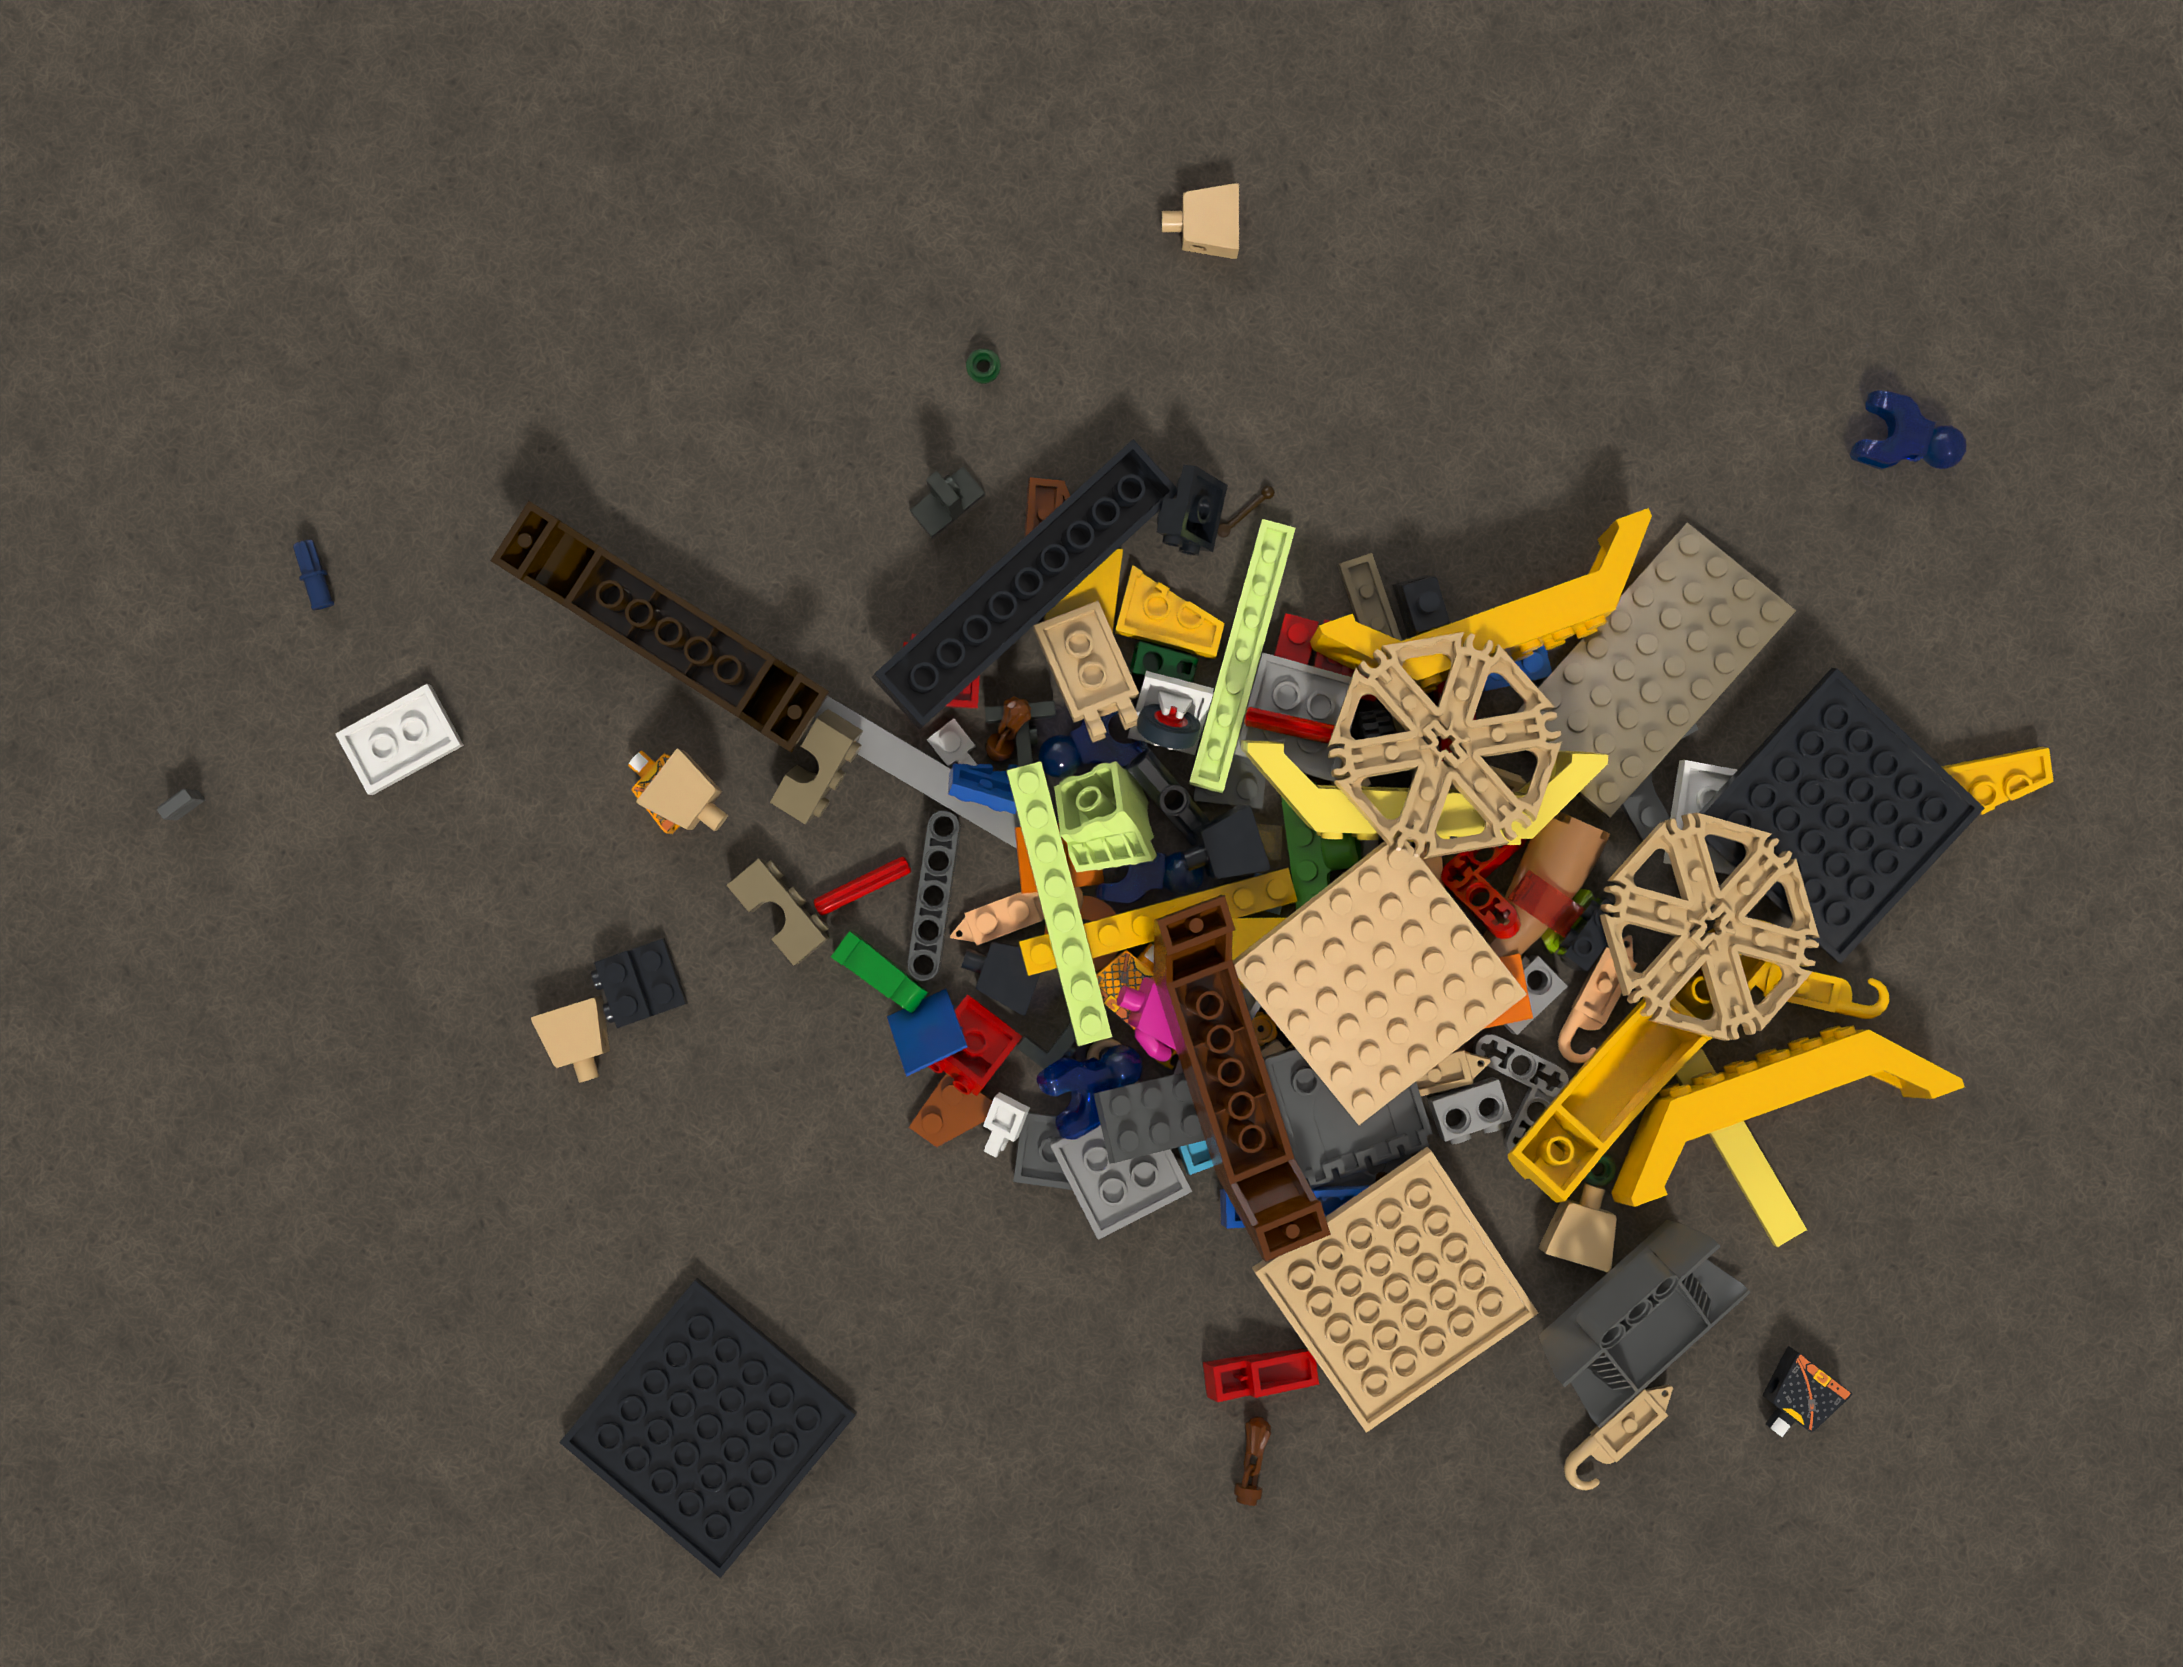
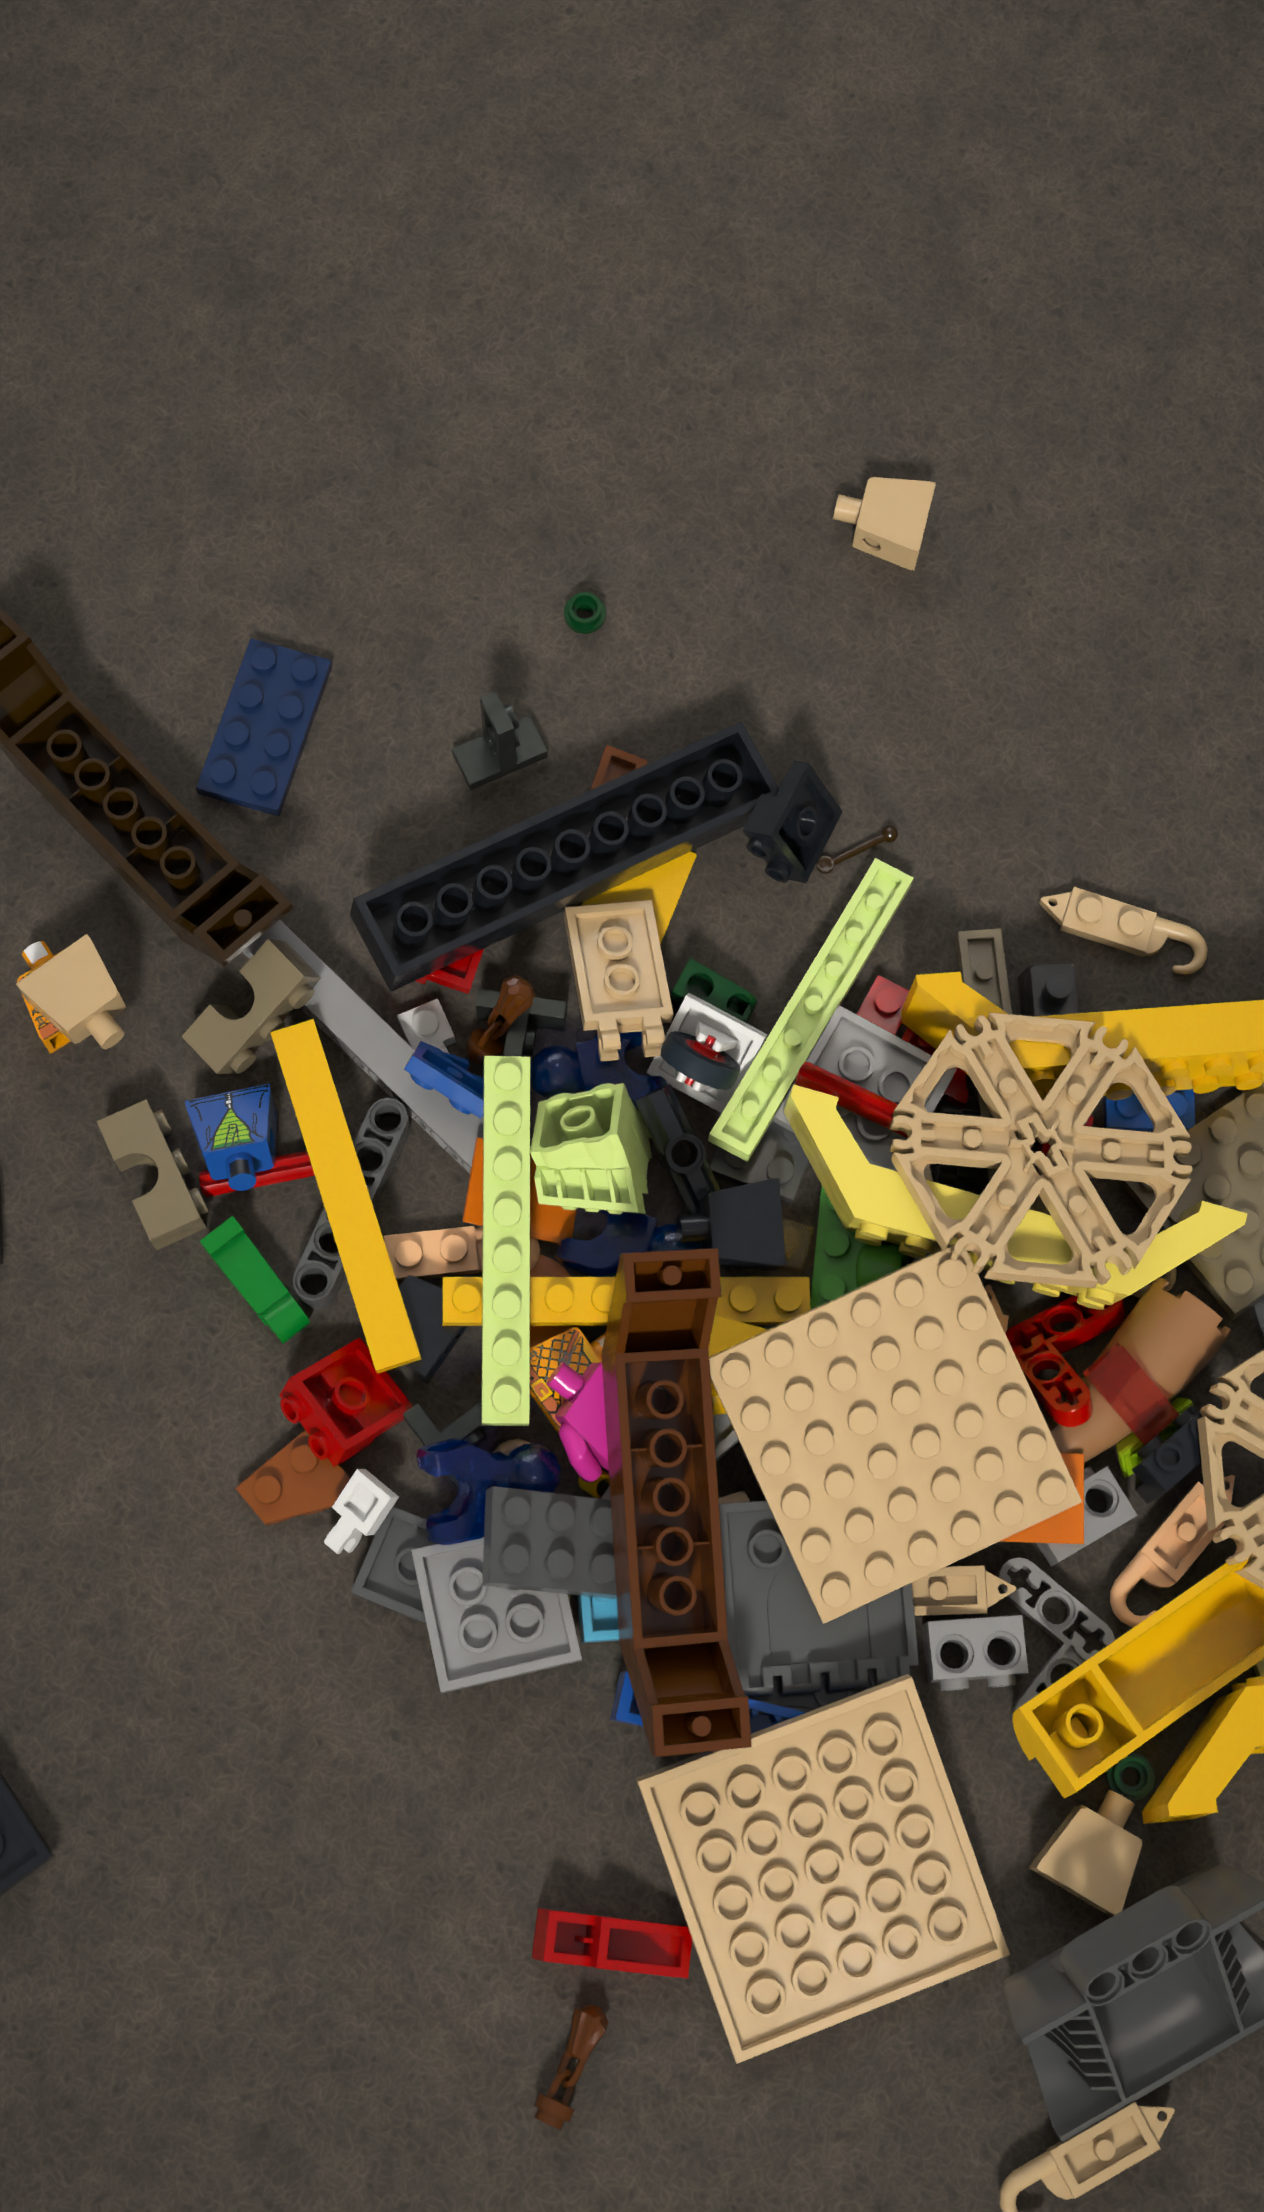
camera: 15 degrees right, 15 degrees down
(757, 527) = (264, 727): none -> dark blue plate
(833, 866) = (236, 1133): none -> blue torso
(927, 1033) = (294, 1368): blue window -> none
(928, 895) = (345, 1197): none -> yellow tile
(1165, 619) = (729, 945): yellow wing -> none
(1269, 1032) = (737, 1475): light orange plate -> none
(1465, 523) = (1122, 926): none -> tan plate

